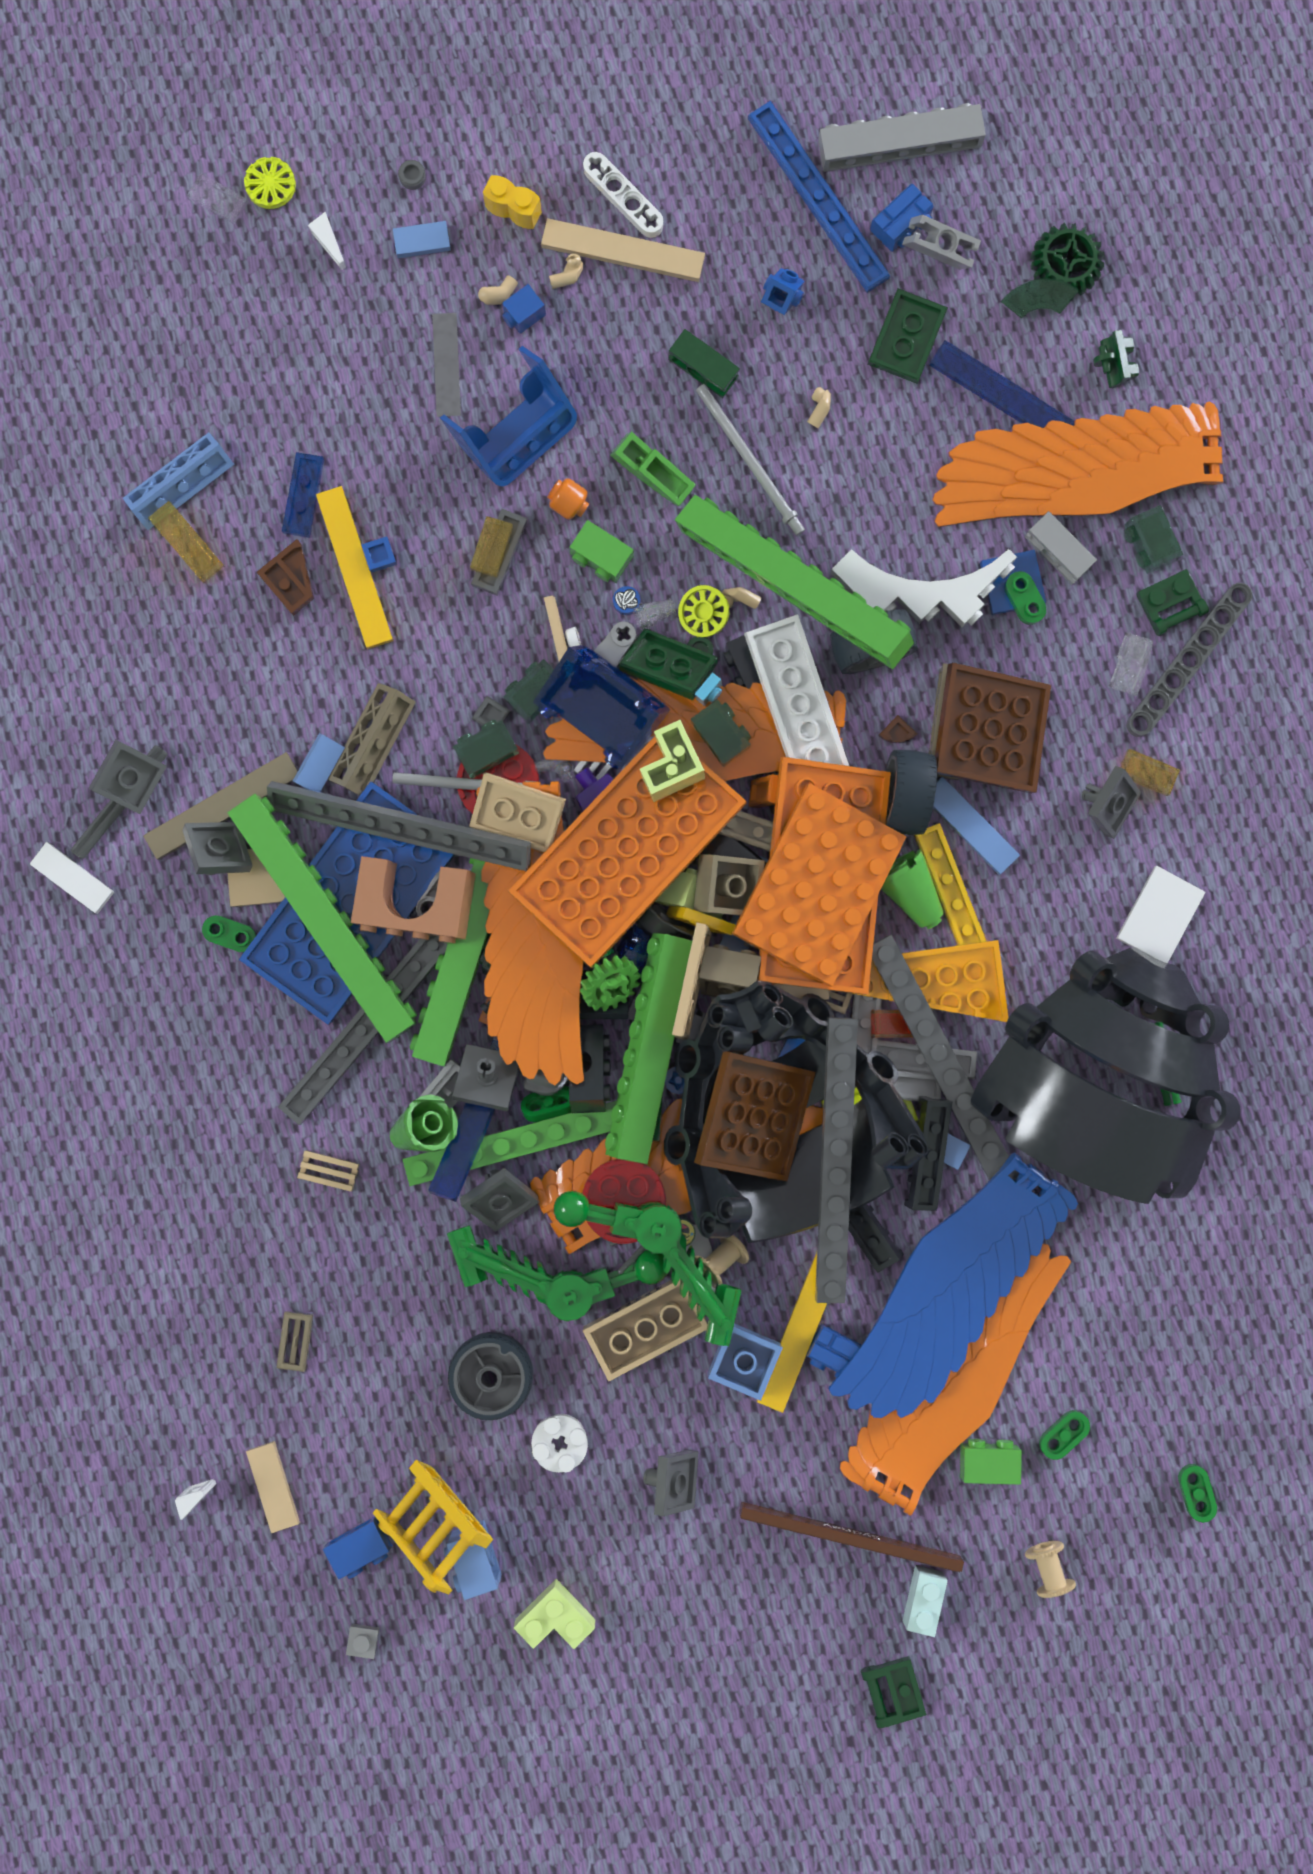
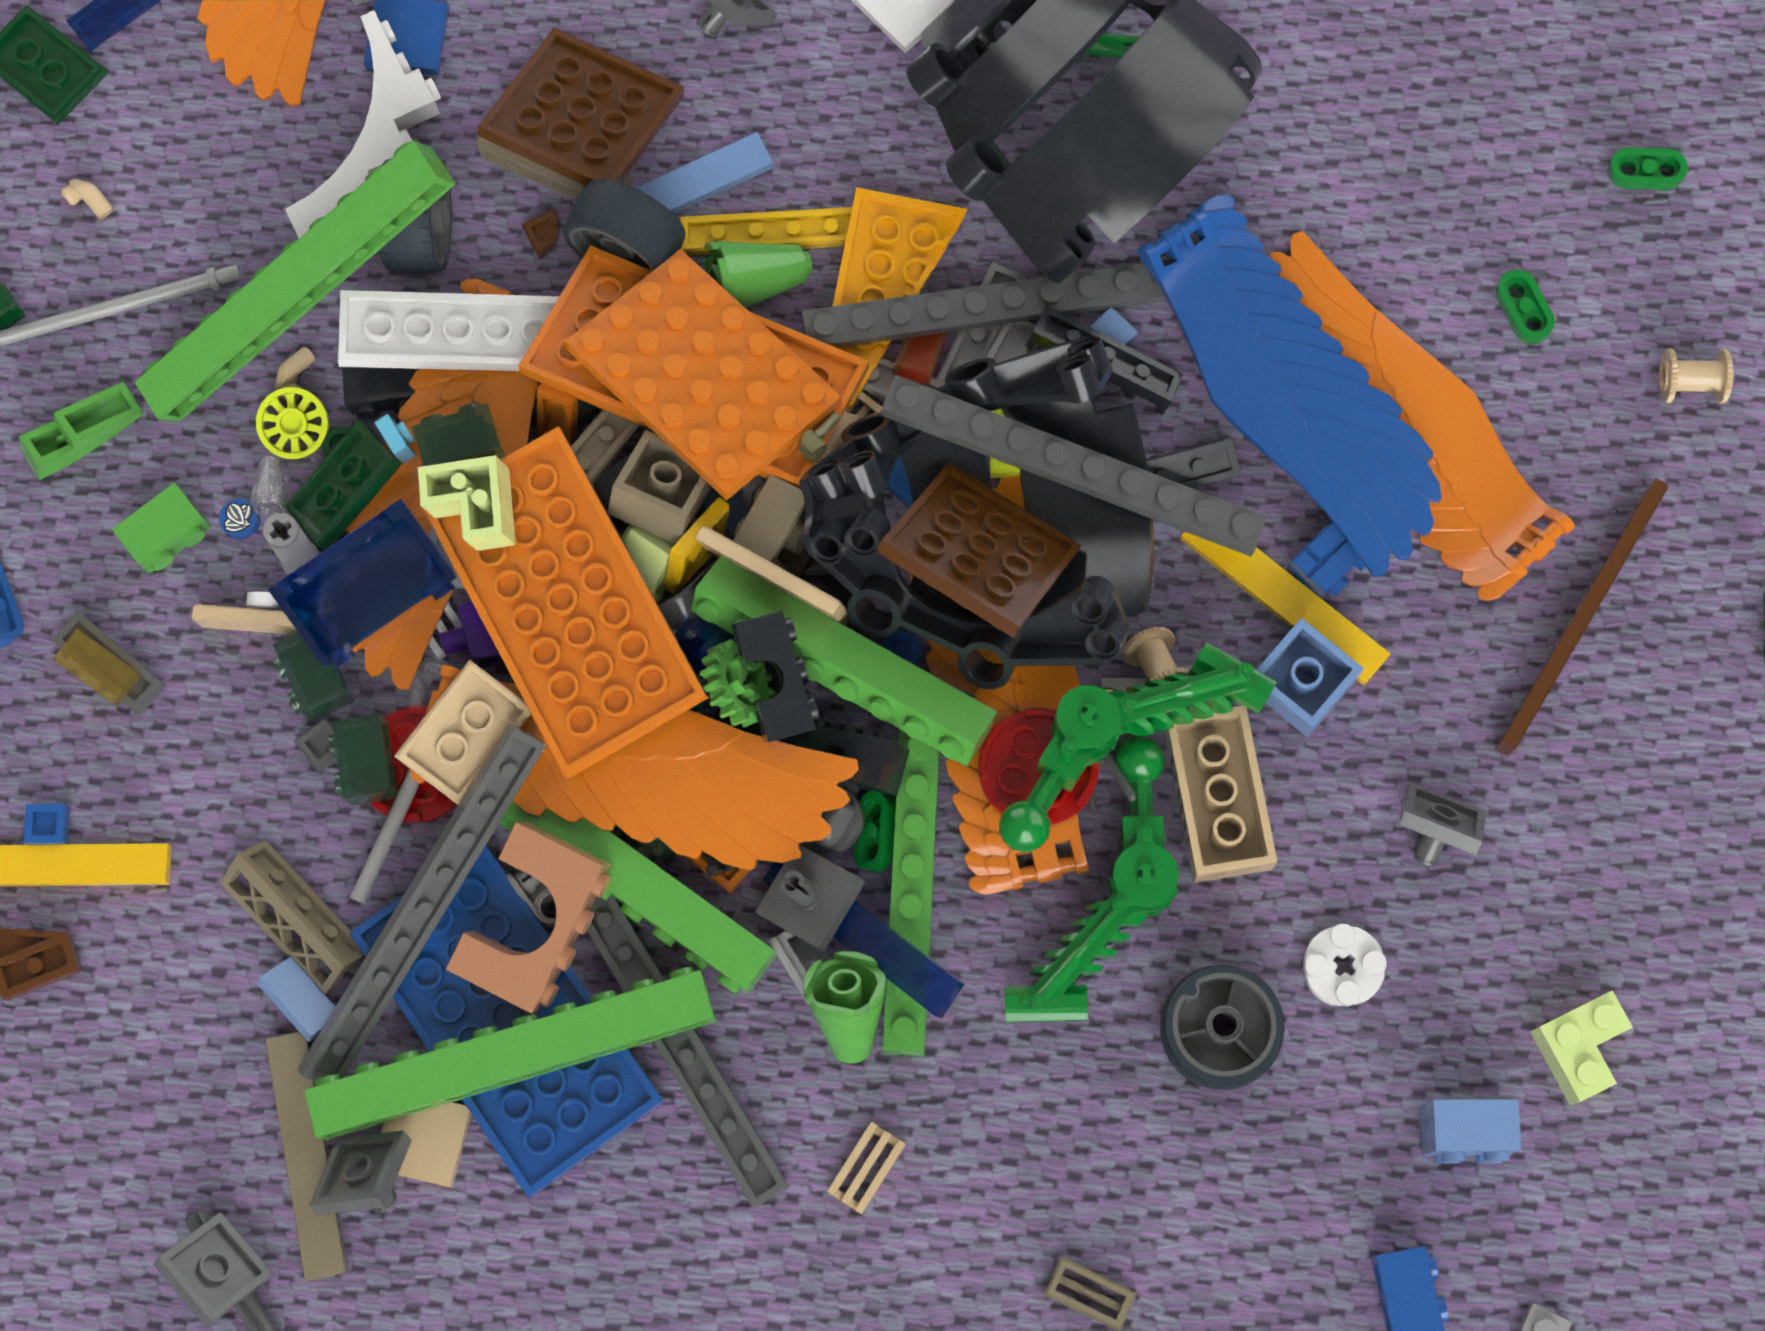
camera: 60 degrees left, 10 degrees down
(228, 933) = (487, 1202): green plate -> none
(456, 1516) = (1401, 1127): yellow fence -> none
(499, 1199) = (982, 935): dark grey tile -> none
(568, 498) = (74, 549): orange head -> none
(599, 1024) = (788, 709): none -> black arch
(790, 978) = (812, 442): none -> olive hand
(924, 1601) = (1694, 546): light aqua brick -> none
(990, 1462) = (1535, 408): bright green brick -> none
(1024, 597) = (430, 25): green plate -> none

